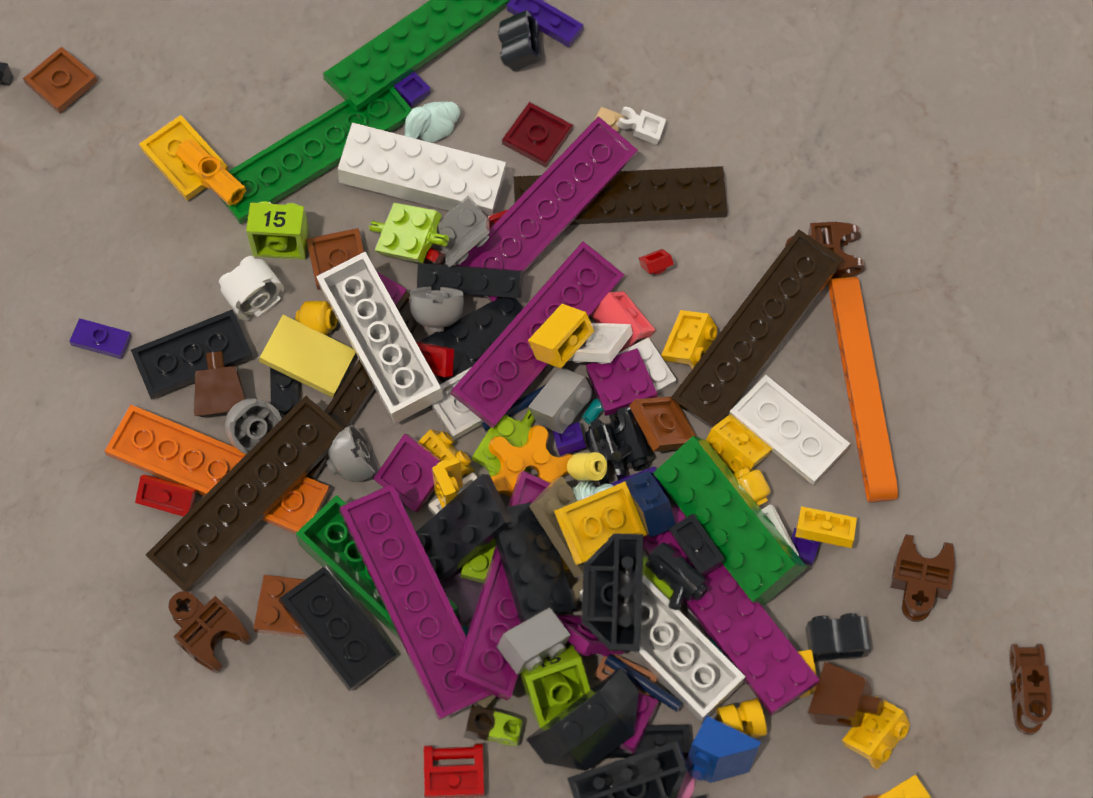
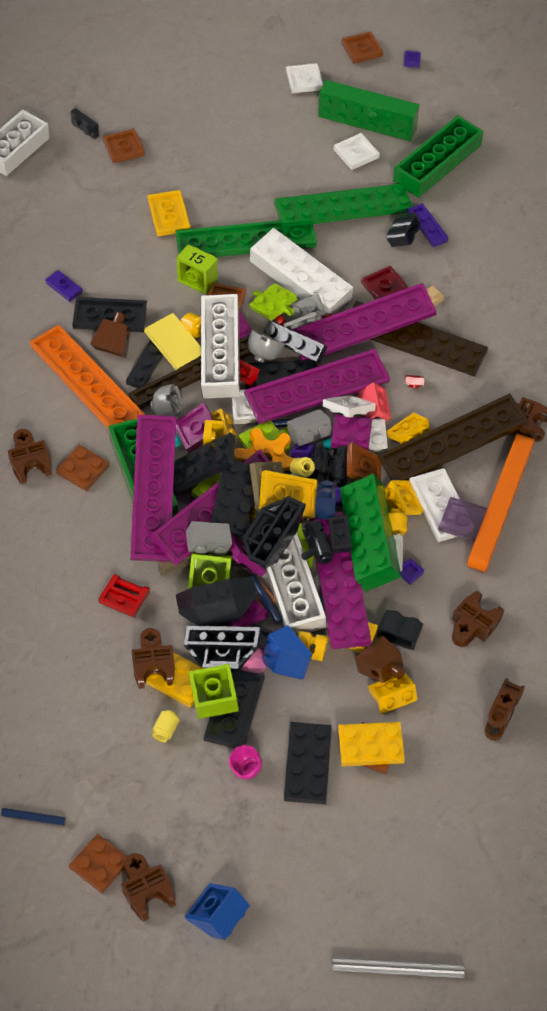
camera: 25 degrees right, 10 degrees down
(165, 495) = (49, 379): red plate -> none
(219, 181) = (177, 223): light orange piece -> none
(245, 495) = (93, 395): dark brown plate -> none
(249, 423) = (119, 362): light grey cylinder -> none
(251, 288) = (163, 292): white brick -> none
(337, 628) = (103, 488): black plate -> none
(413, 89) = (324, 231): dark purple plate -> none
(432, 121) = (325, 251): light aqua hair -> none
(493, 726) = (161, 581): leg -> none
(561, 335) = (328, 389): yellow brick -> none
(645, 126) = (452, 306): white plate -> none
(826, 527) = (429, 564): yellow bracket -> none
(831, 439) = (462, 519): none -> clear purple tile

